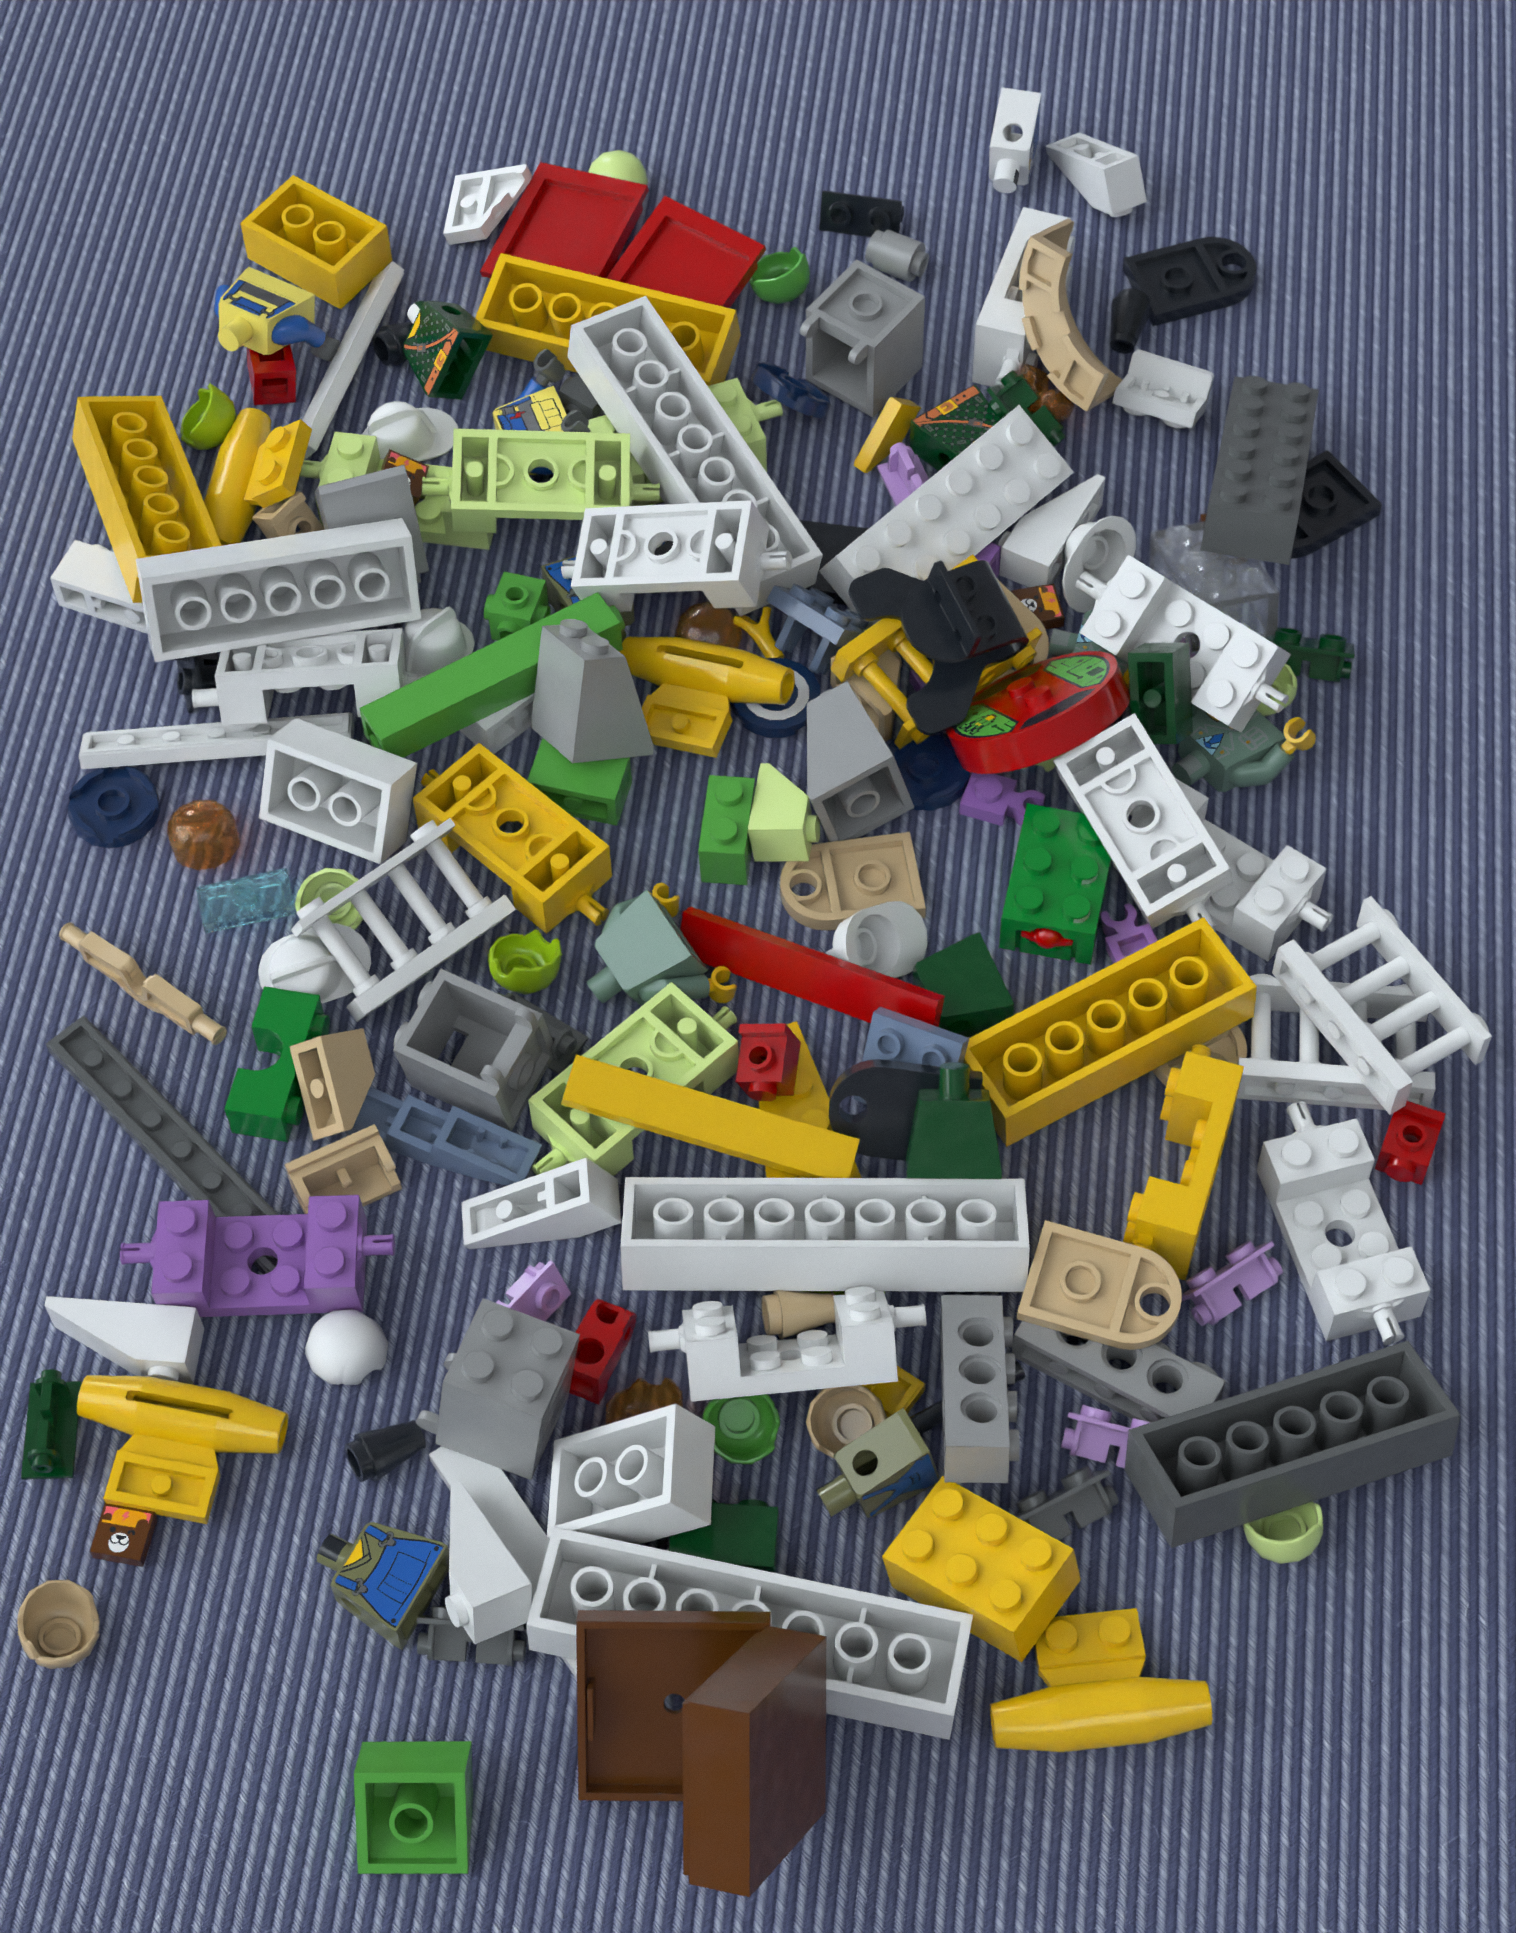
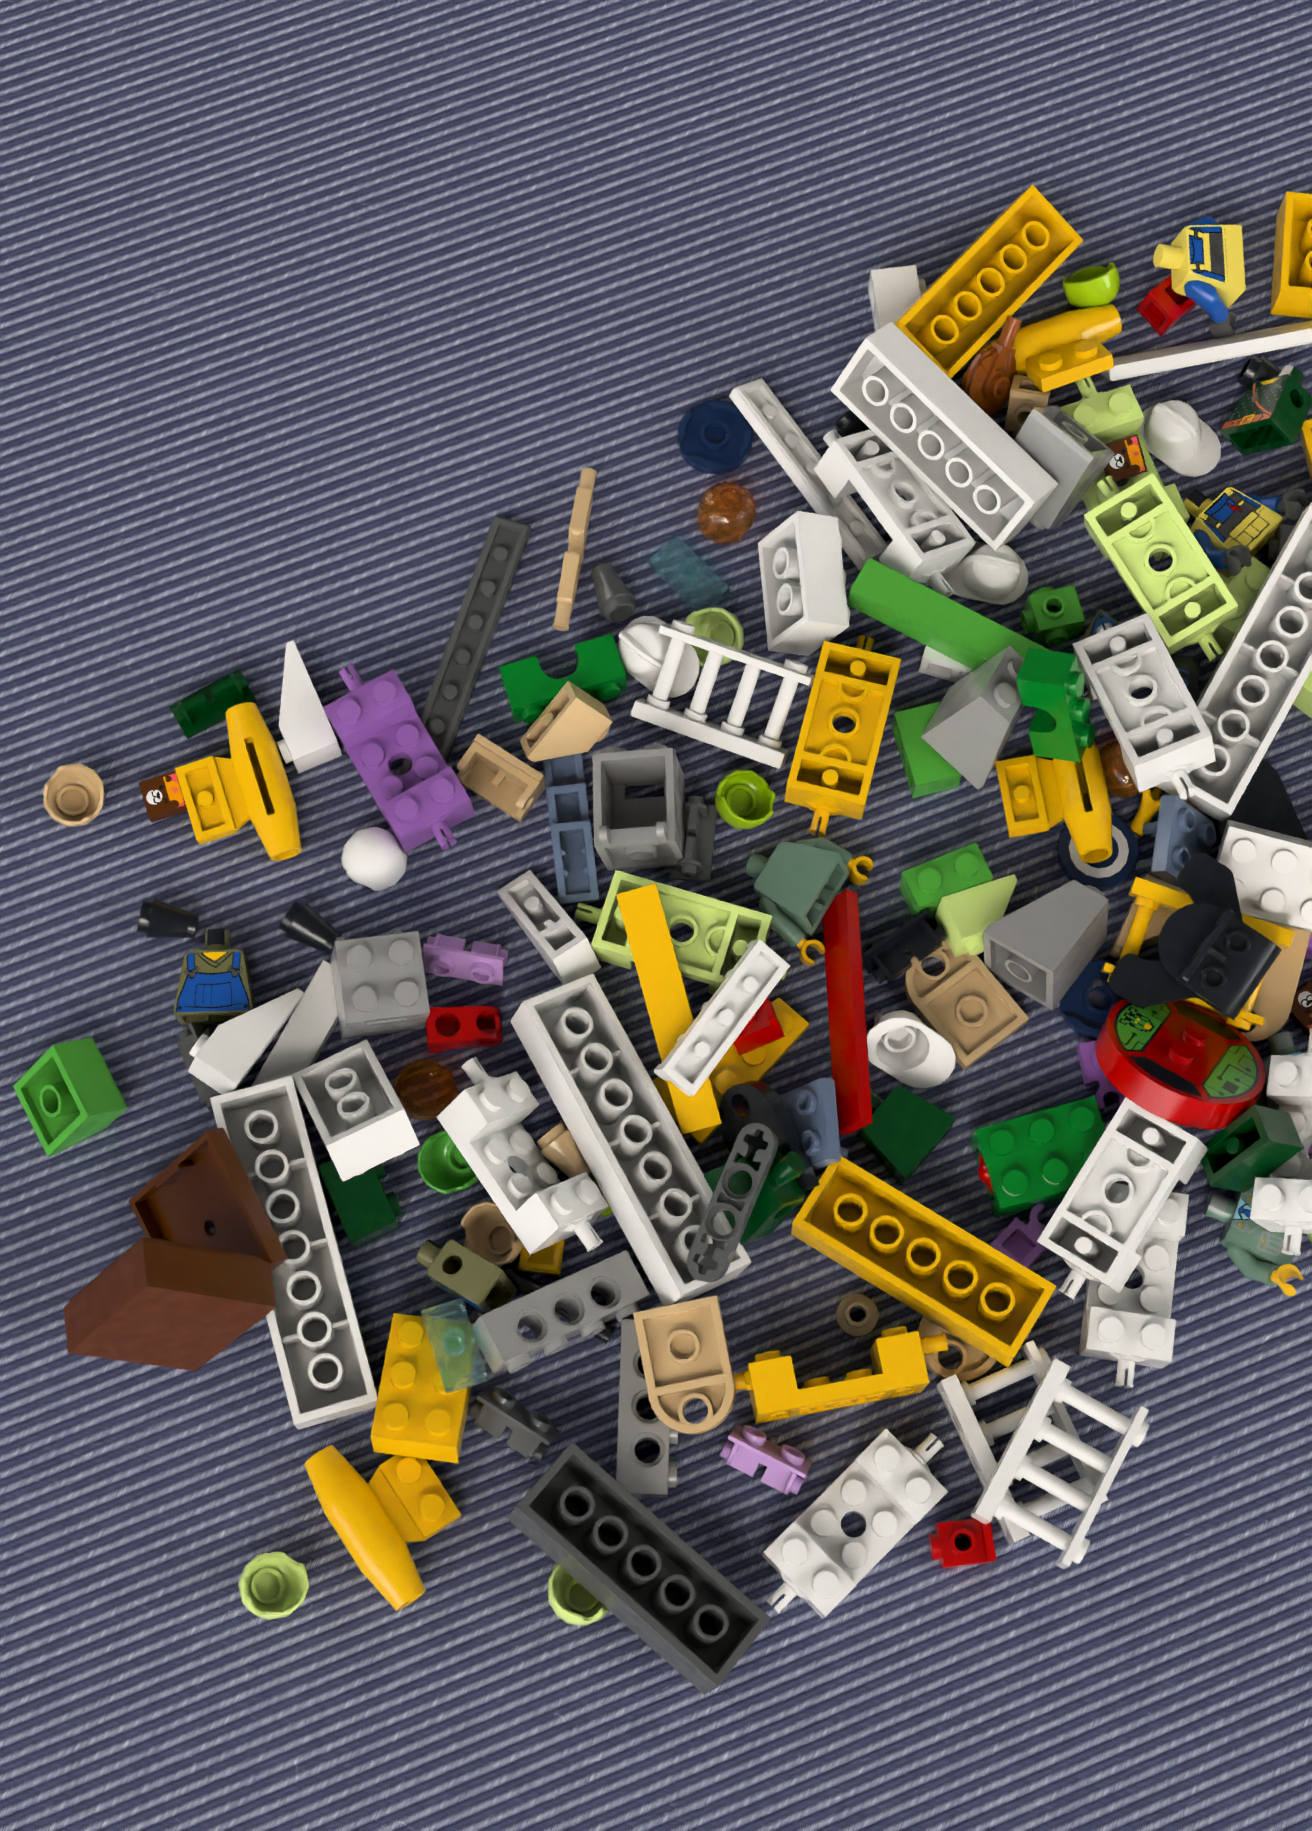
camera: 60 degrees right, 15 degrees up
(215, 975) = (612, 595): none -> dark grey cone
(229, 515) = (993, 370): none -> dark orange piece
(272, 1601) = (166, 921): none -> black cone
(628, 621) = (1062, 718): none -> green arch
(756, 1069) = (723, 1018): none -> white hinge
(765, 882) = (887, 956): none -> black hinge
(958, 1499) = (454, 1345): none -> clear light blue plate
(968, 1140) = (739, 1205): none -> dark grey beam
(1095, 1434) = (587, 1415): lavender hinge -> none
(1118, 1843) = (273, 1585): none -> yellowish green hair
(1125, 1139) = (852, 1328): none -> dark tan plate

